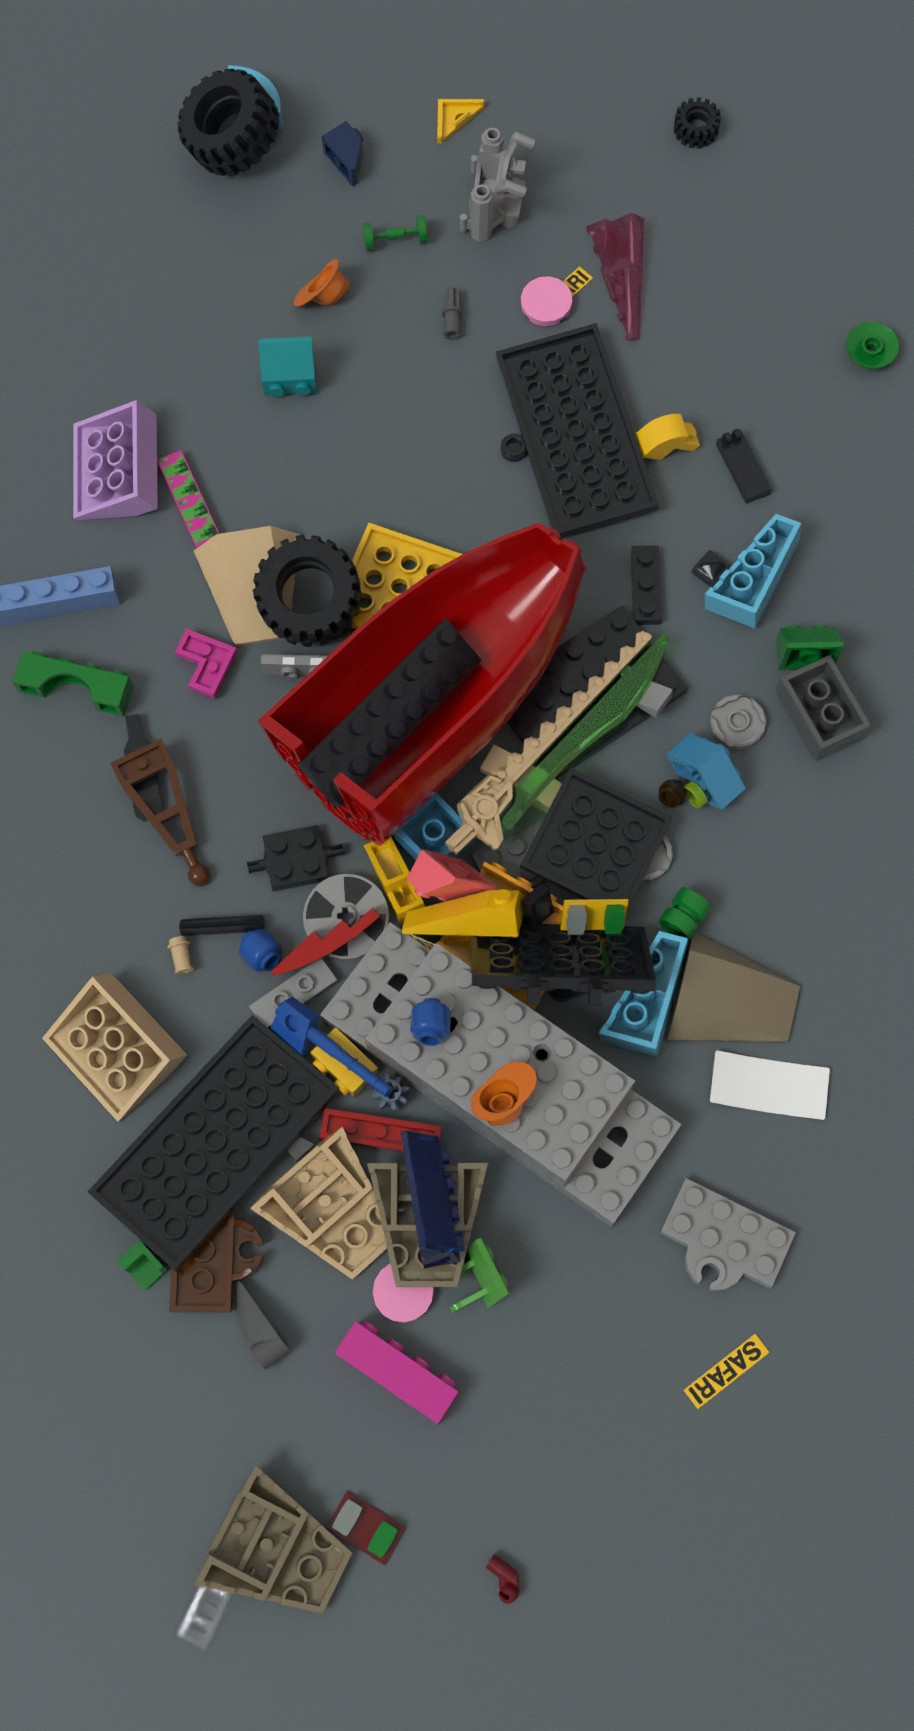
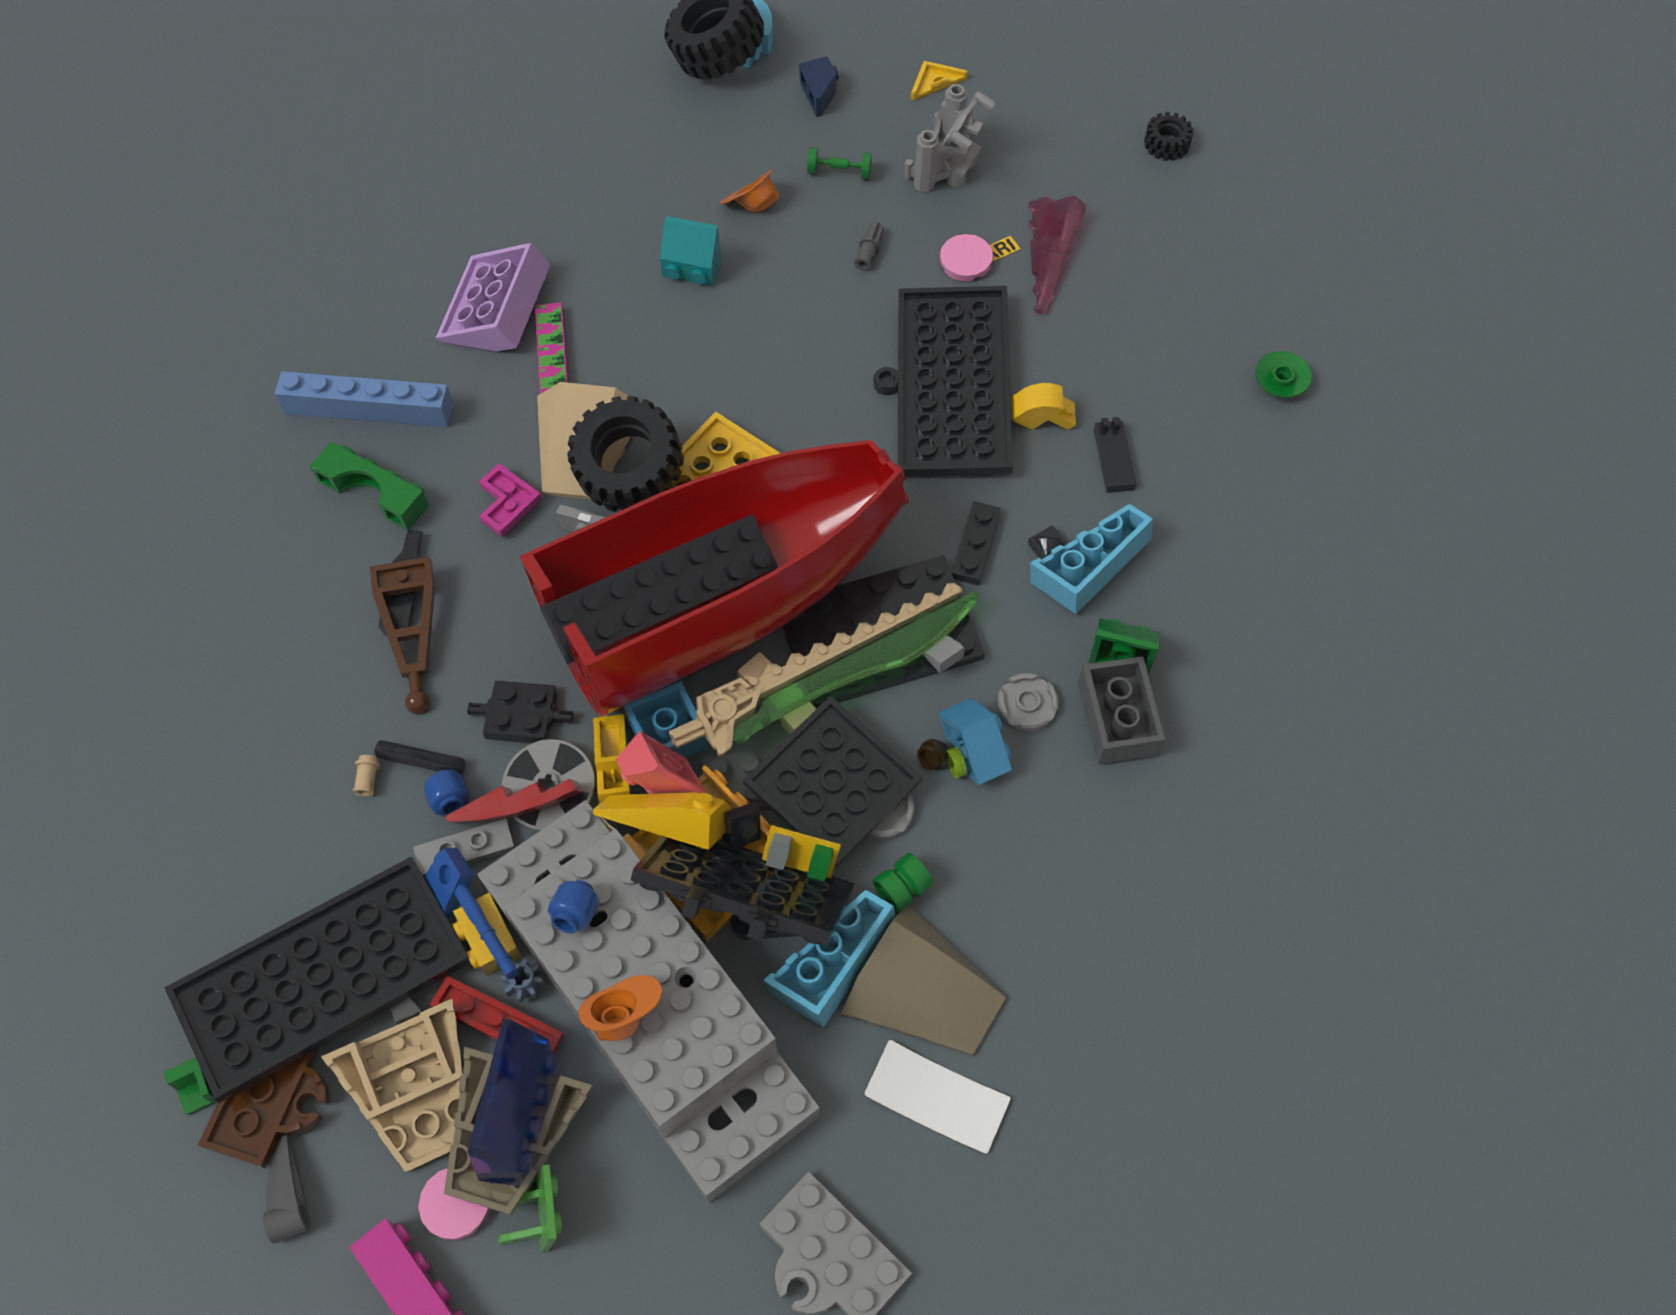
camera: 15 degrees right, 10 degrees down
(113, 1045) = (260, 846): tan slope -> none

